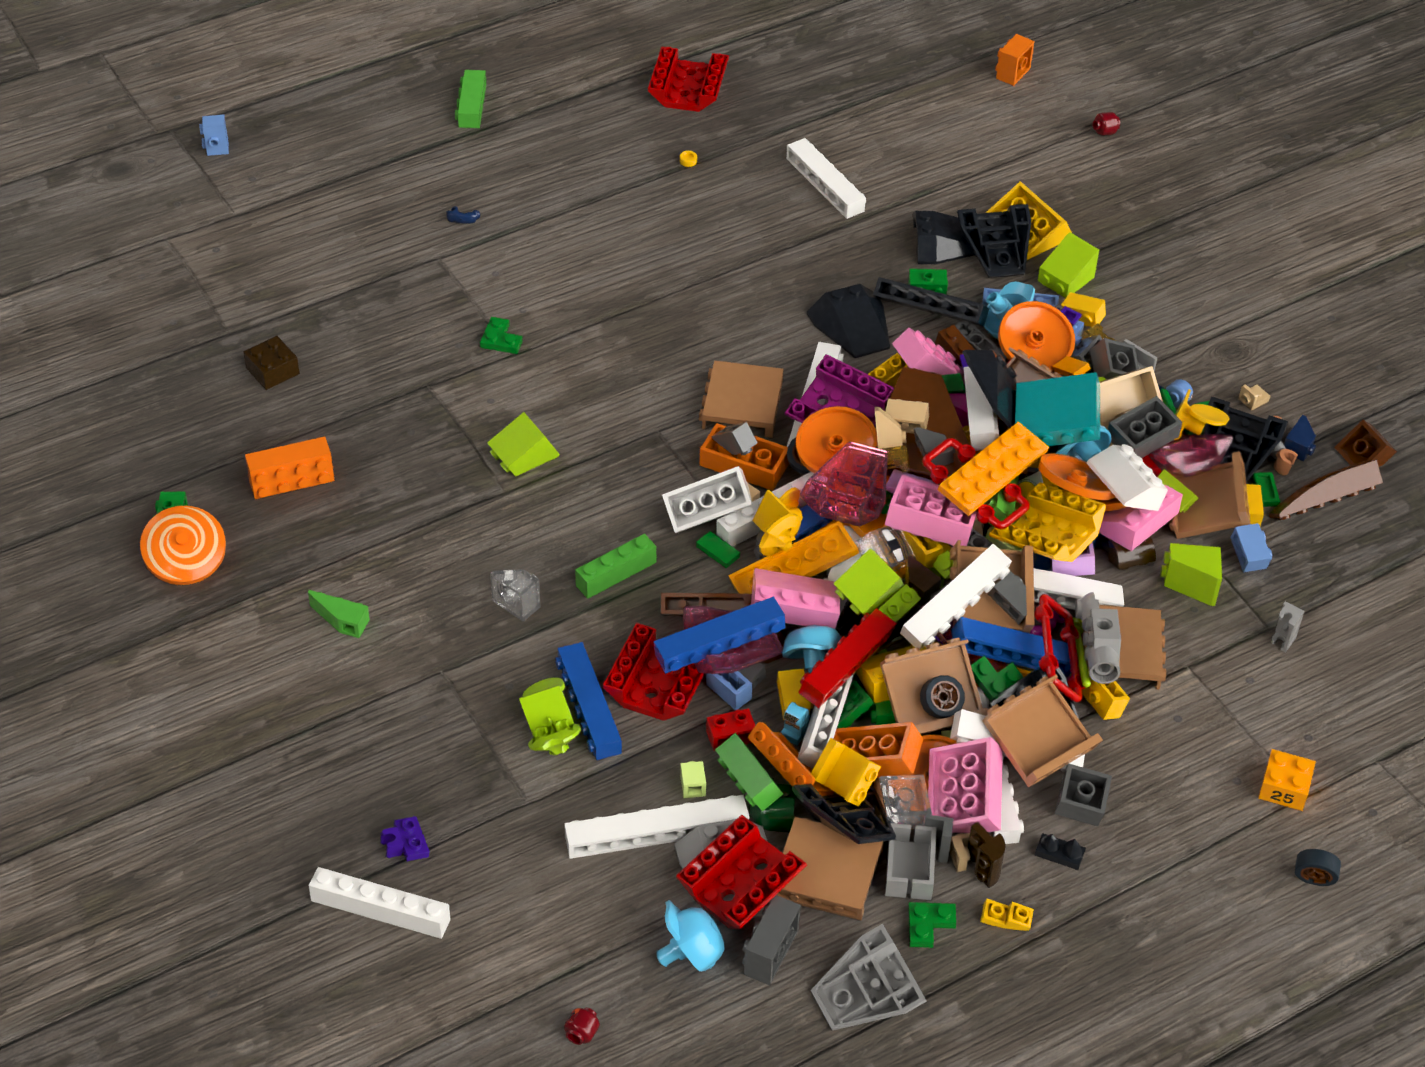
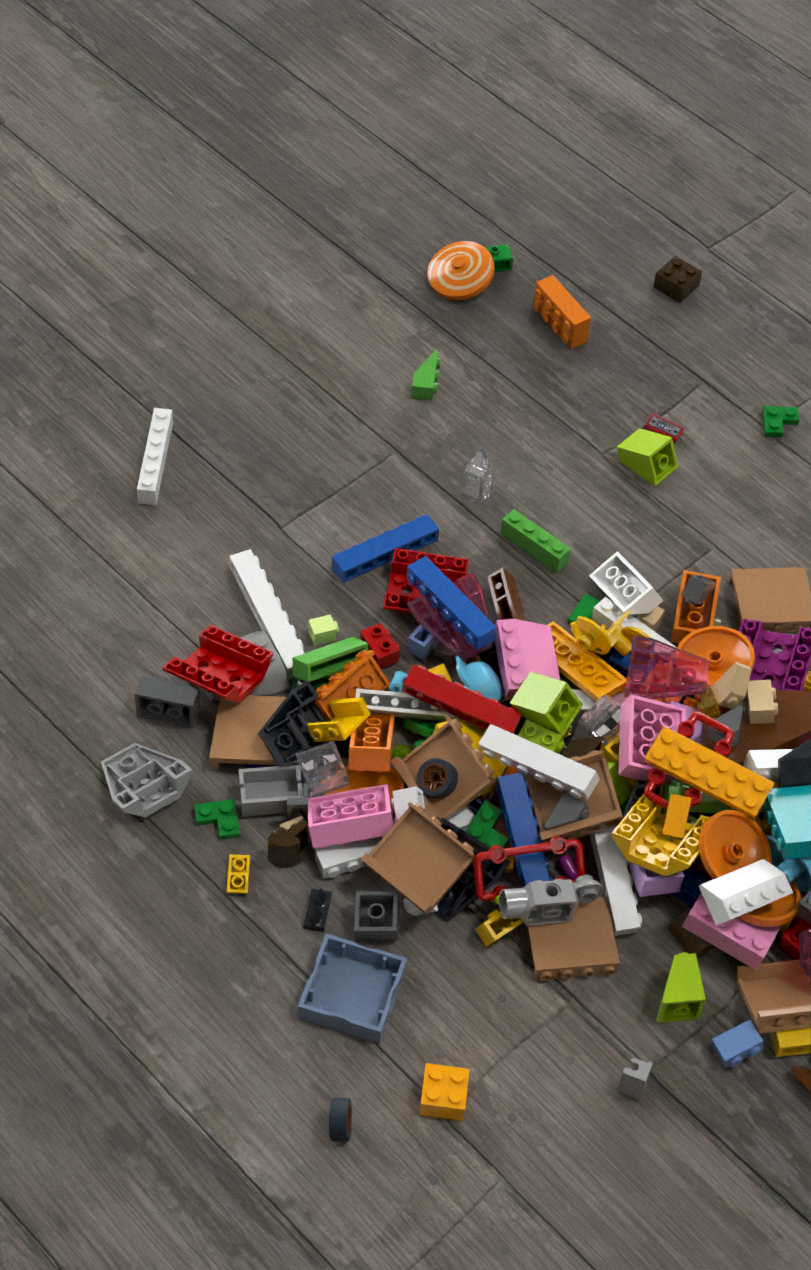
camera: 75 degrees right, 5 degrees up
(405, 838) = (219, 462): dark purple plate -> none
(483, 428) = (662, 426): none -> tile
(549, 716) = (356, 517): lime piece -> none
(581, 1025) = (70, 597): dark red head -> none
(694, 938) = (154, 642): medium azure piece -> none
(1034, 508) = (676, 816): none -> light orange tile
(1163, 834) = (352, 988): none -> sand blue tile
(1188, 496) = (780, 961): lime hinge -> none

